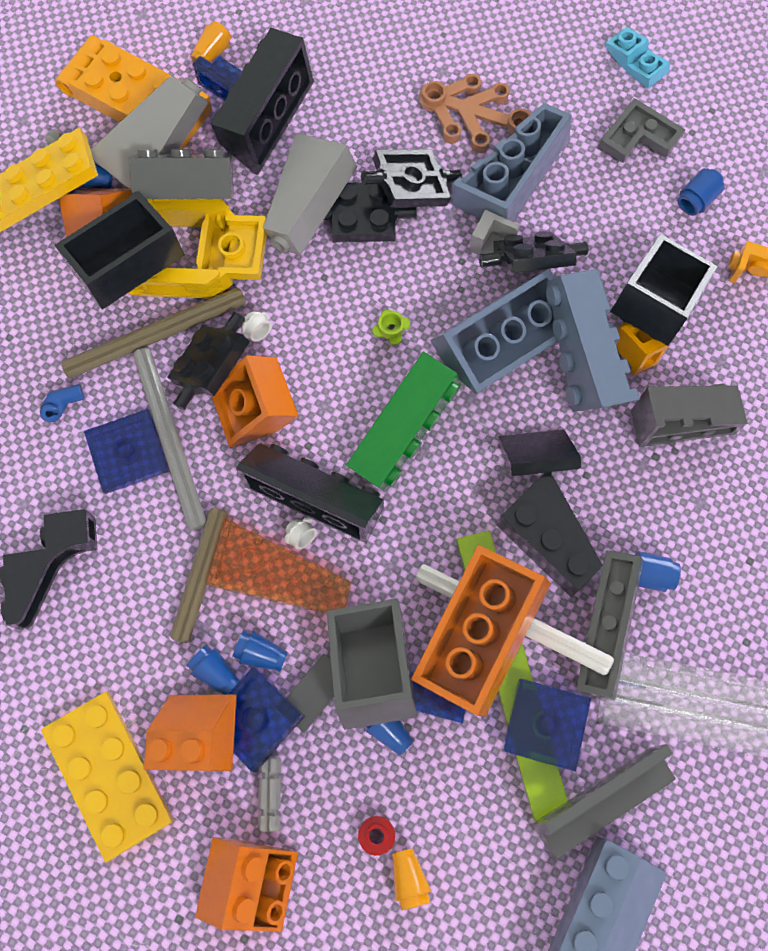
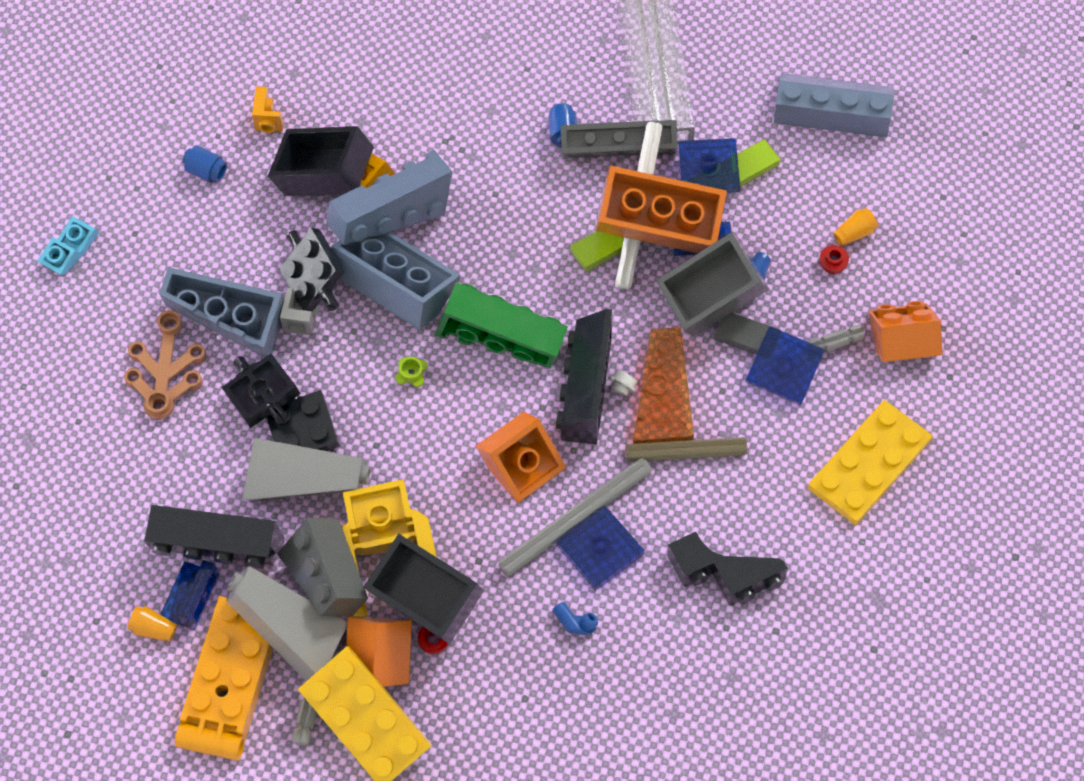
camera: 105 degrees left, 10 degrees down
(153, 333) = (482, 567): dark tan axle -> none
(192, 734) = (814, 400): orange slope -> none
(208, 360) = (496, 500): black plate -> none
(213, 670) = (759, 410): blue cone -> none
(256, 325) = (446, 479): white plate -> none
(259, 652) = (732, 382): blue cone -> none
(539, 452) = (494, 221): black tile -> none
(551, 535) = (558, 199): black wedge -> none
(605, 801) = (746, 117): dark grey fence -> none
(643, 125) = (147, 224): dark grey plate -> none
(687, 413) = (422, 125): dark grey wedge -> none

